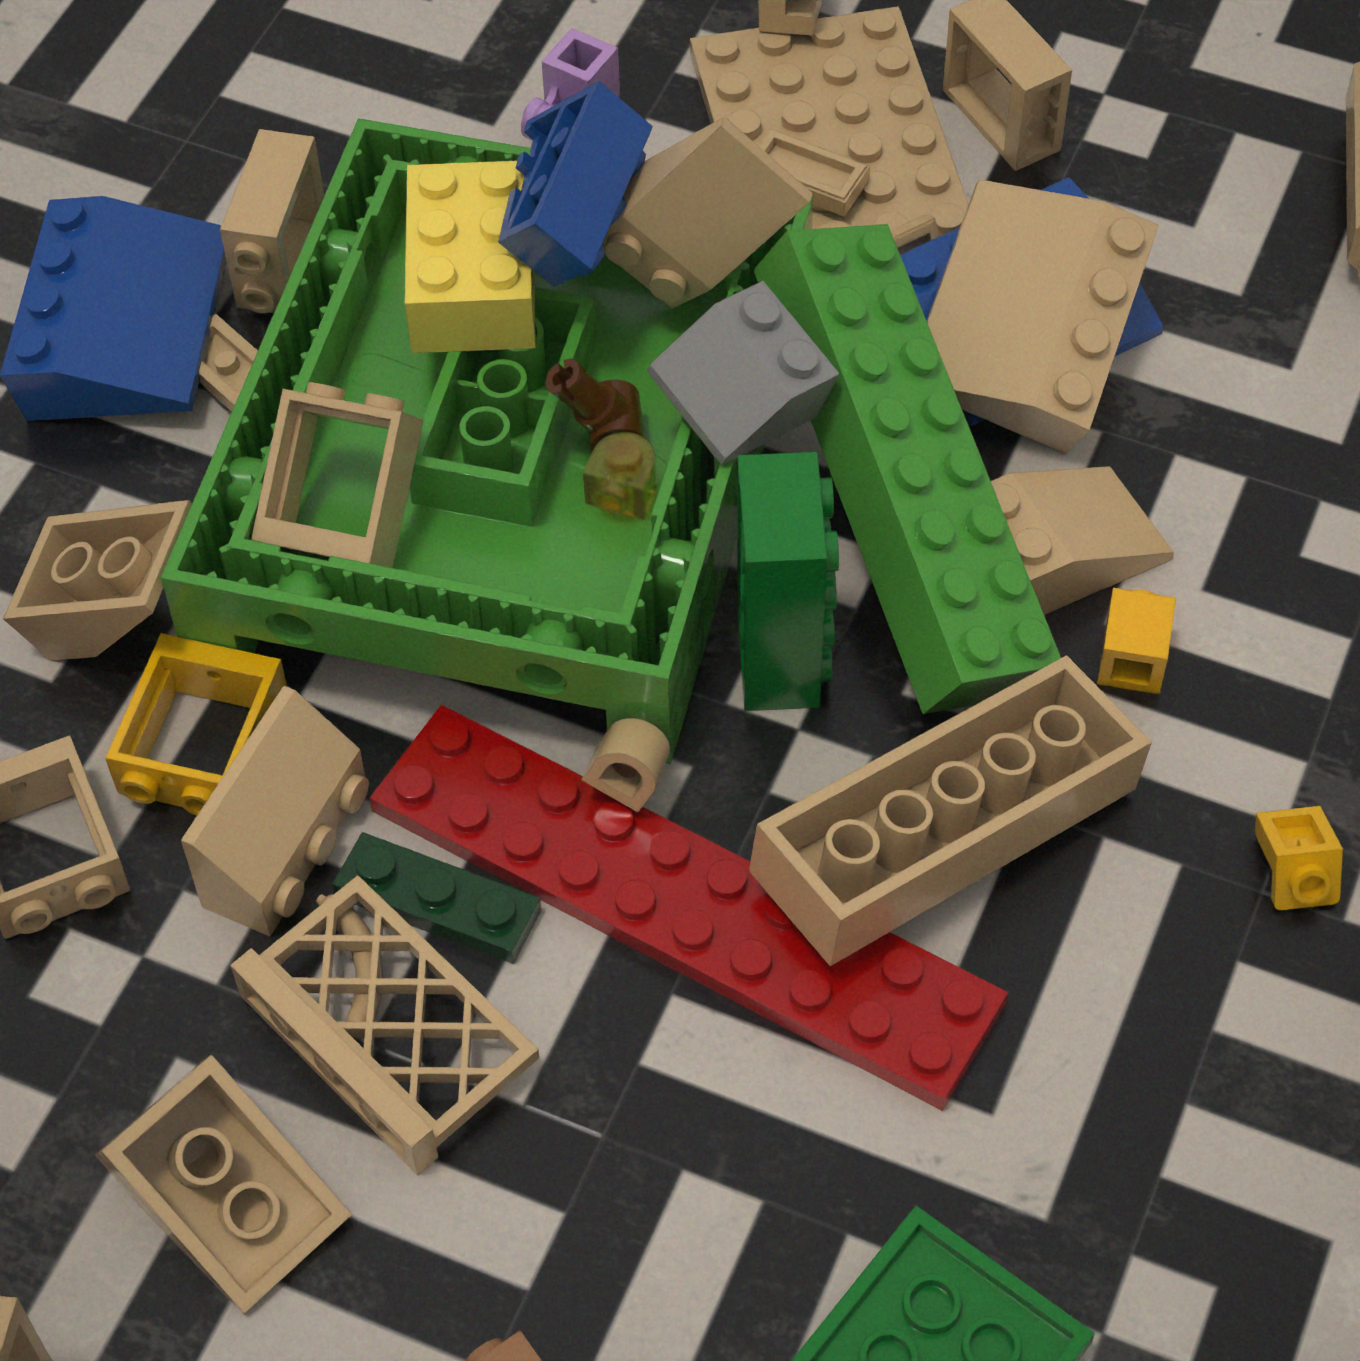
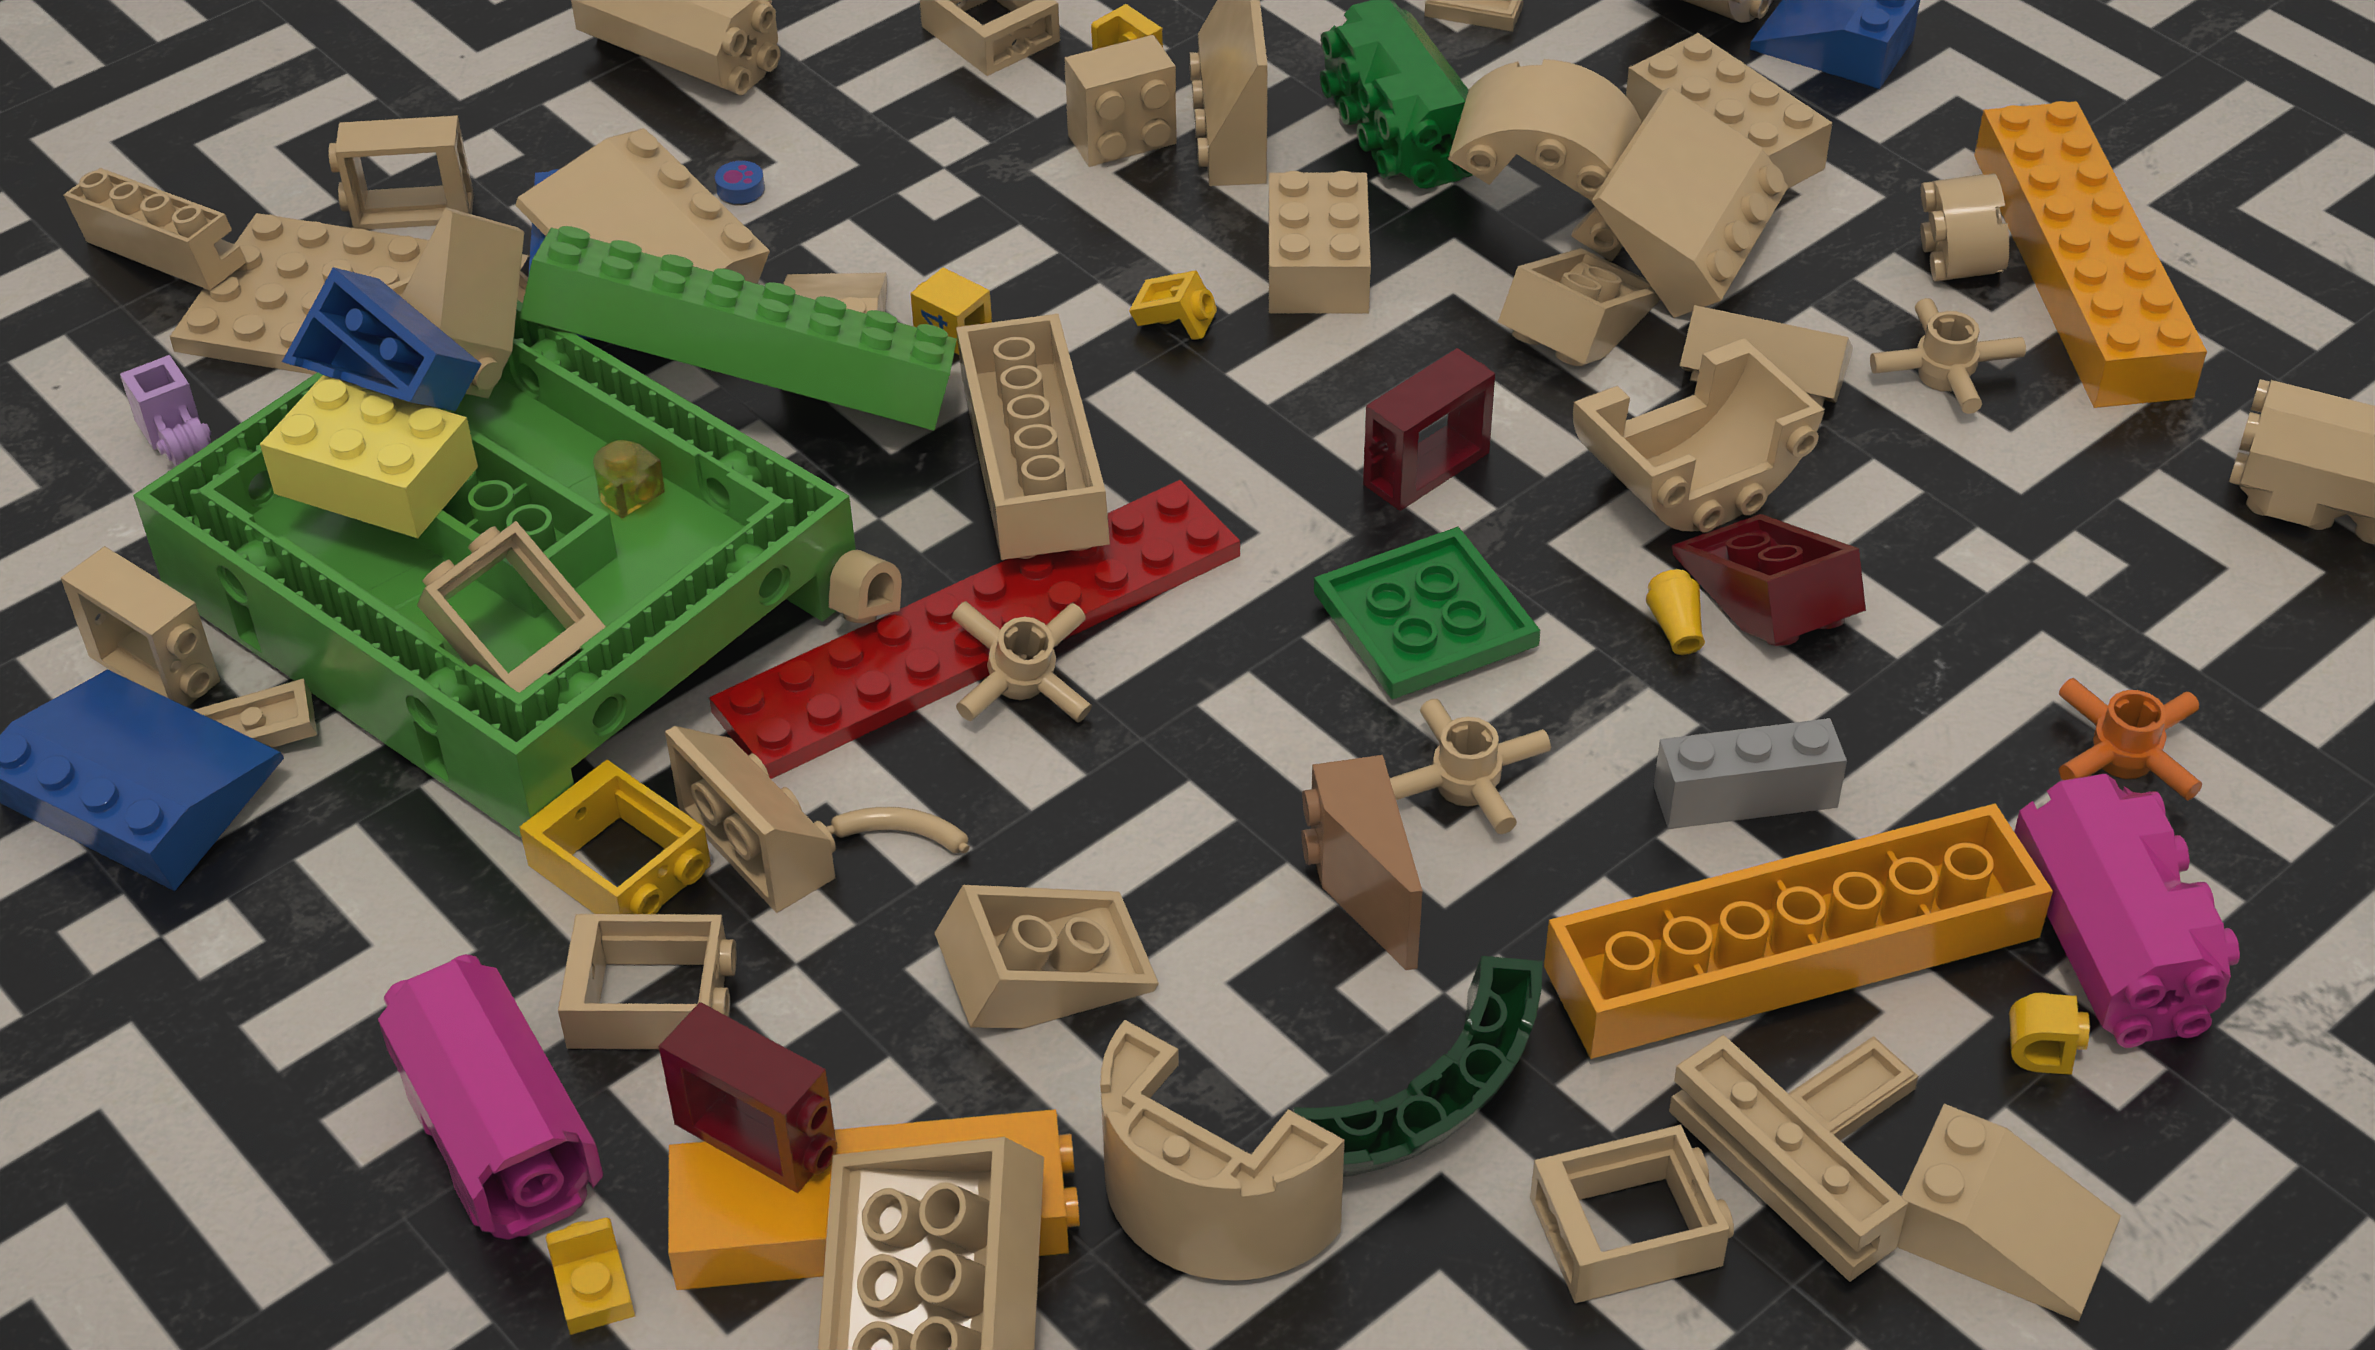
camera: 65 degrees left, 10 degrees down
(94, 577) = (443, 832): tan slope -> none
(342, 1061) = (984, 849): tan fence -> none
(443, 897) = (877, 761): dark green plate -> none
(597, 406) = (564, 457): reddish brown pin -> none
(609, 941) = (1007, 663): none -> tan bar
(744, 373) = (623, 345): light grey slope -> none
(785, 580) = (799, 399): green brick -> none
(1224, 353) = (739, 182): none -> blue tile
(1227, 1227) = (1411, 469): none -> dark red window

